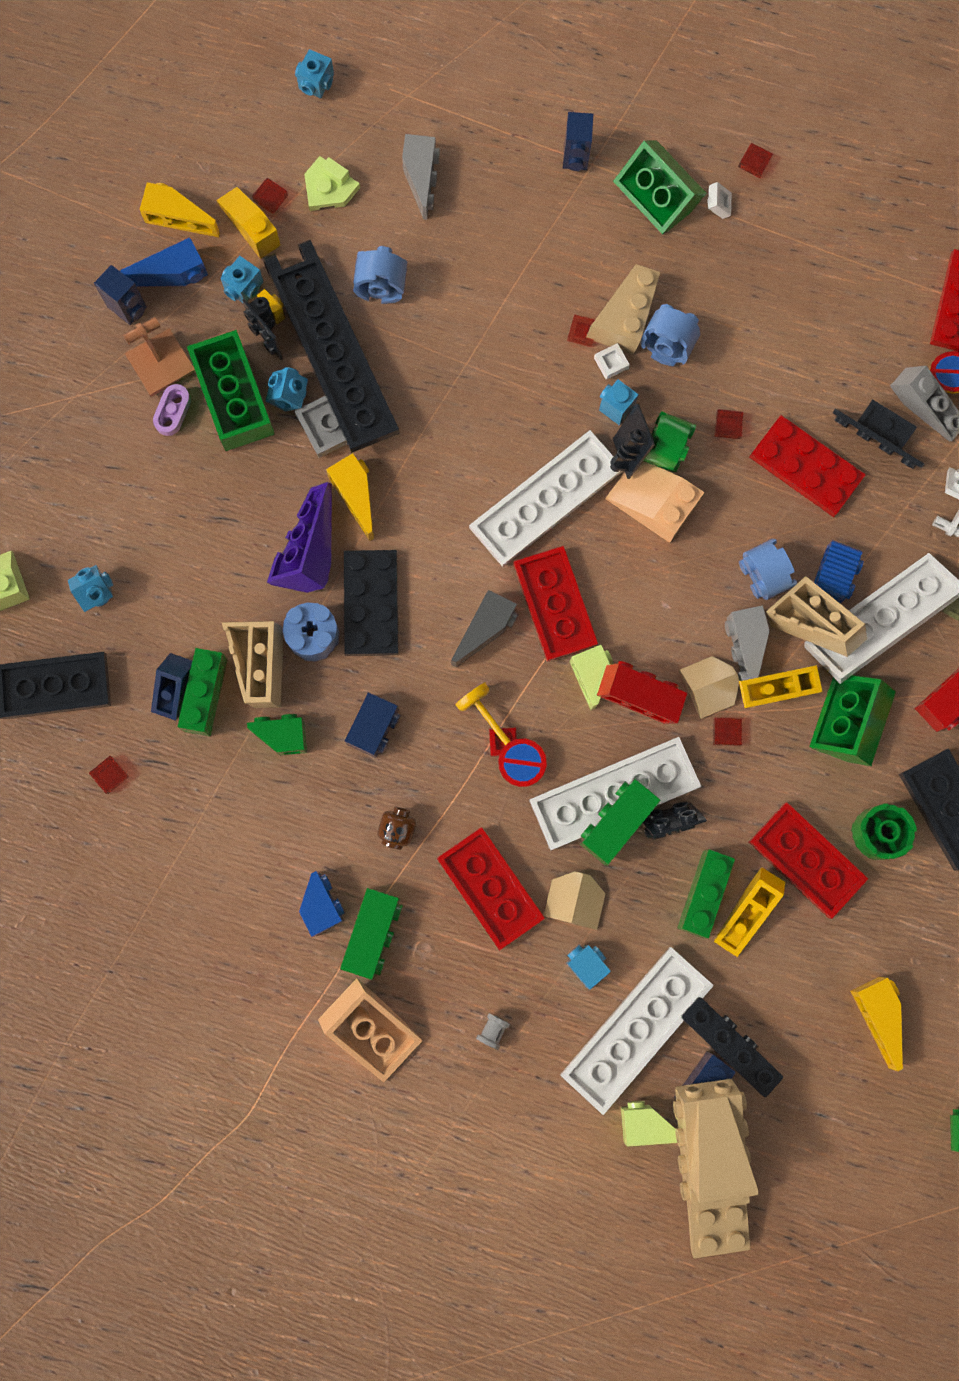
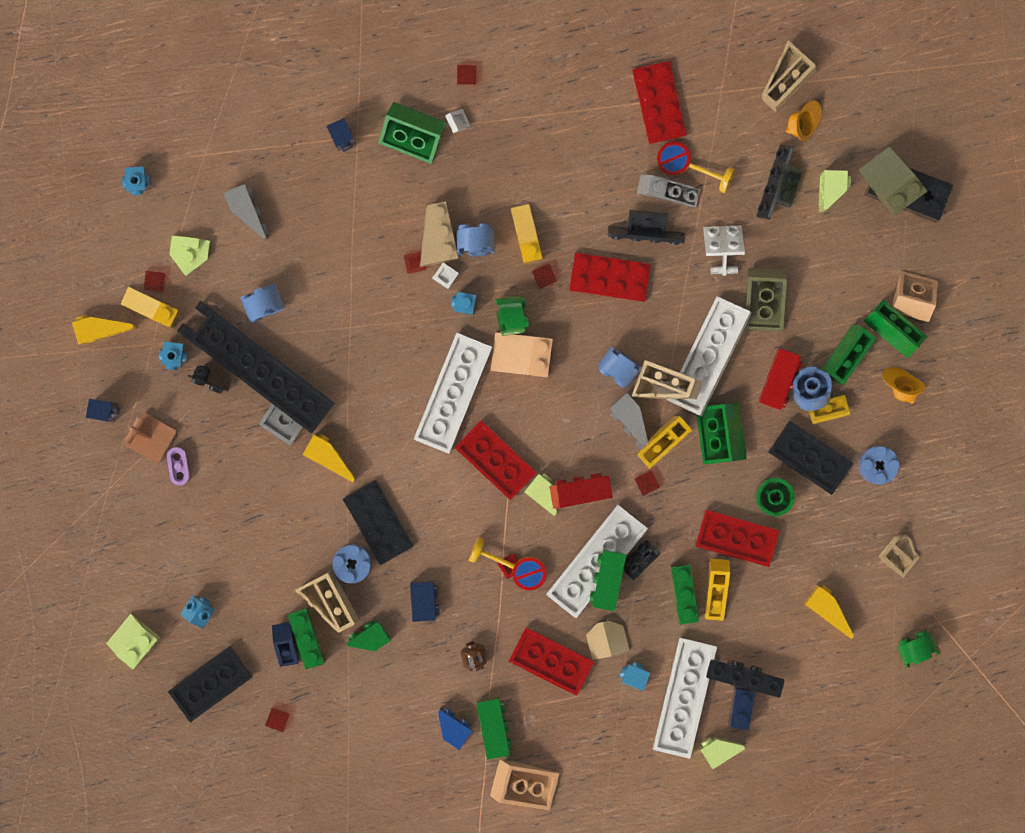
camera: 25 degrees left, 10 degrees up
(170, 267) = (122, 367): blue slope -> none
(230, 390) = (210, 434): green brick -> none
(275, 304) = (202, 359): yellow plate -> none
(286, 389) = (245, 413): dark azure brick -> none
(307, 555) = (320, 515): dark purple wedge -> none
(488, 624) = (460, 494): dark grey slope -> none
(493, 1031) = (598, 745): light grey bush -> none
(632, 443) = (490, 331): black hinge -> none
(711, 685) = (621, 458): tan slope -> none
(714, 1166) = (768, 753): tan wedge -> none
(732, 367) = (526, 234): none -> yellow slope
(838, 570) = (664, 342): blue brick -> none

